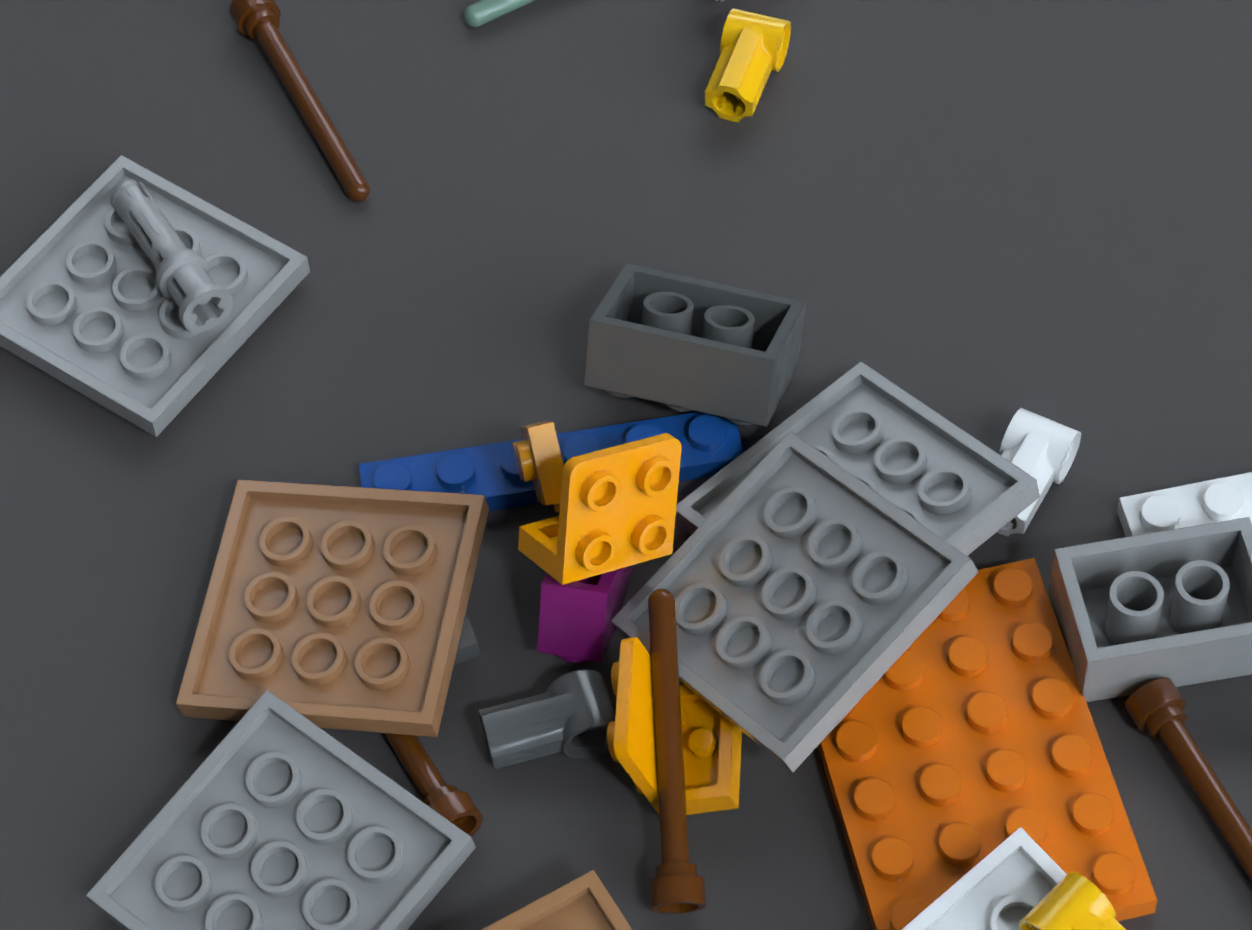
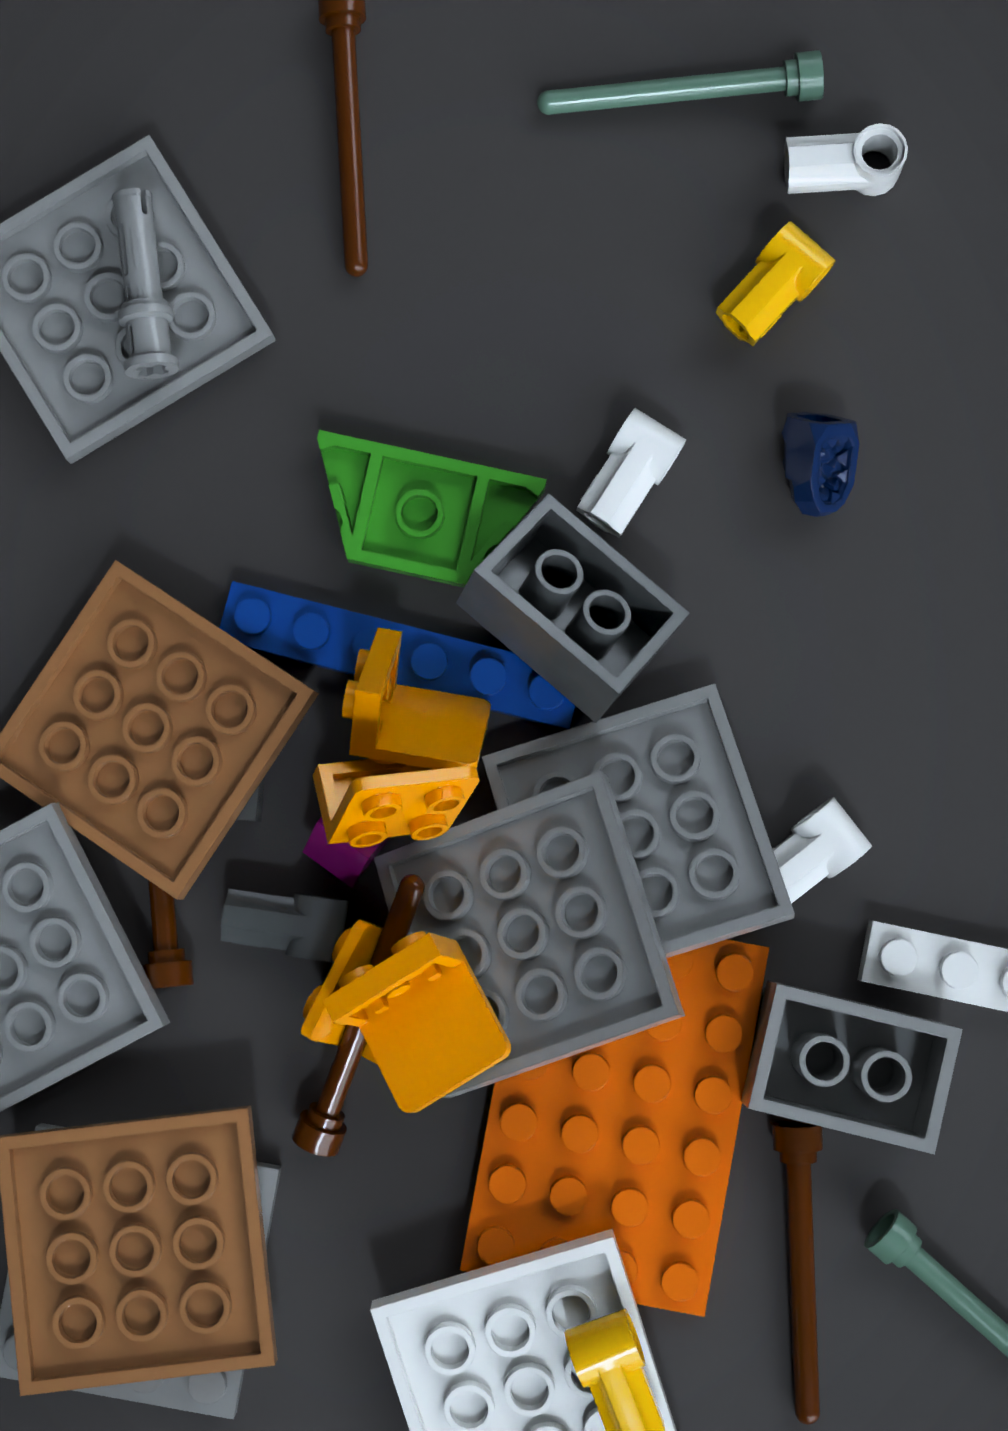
camera: 20 degrees right, 30 degrees up
(505, 342) = (421, 509): none -> bright green wing
(694, 230) = (637, 460): none -> white piece
(724, 689) = (422, 1019): none -> light orange bracket
(858, 166) = (820, 460): none -> dark blue rock

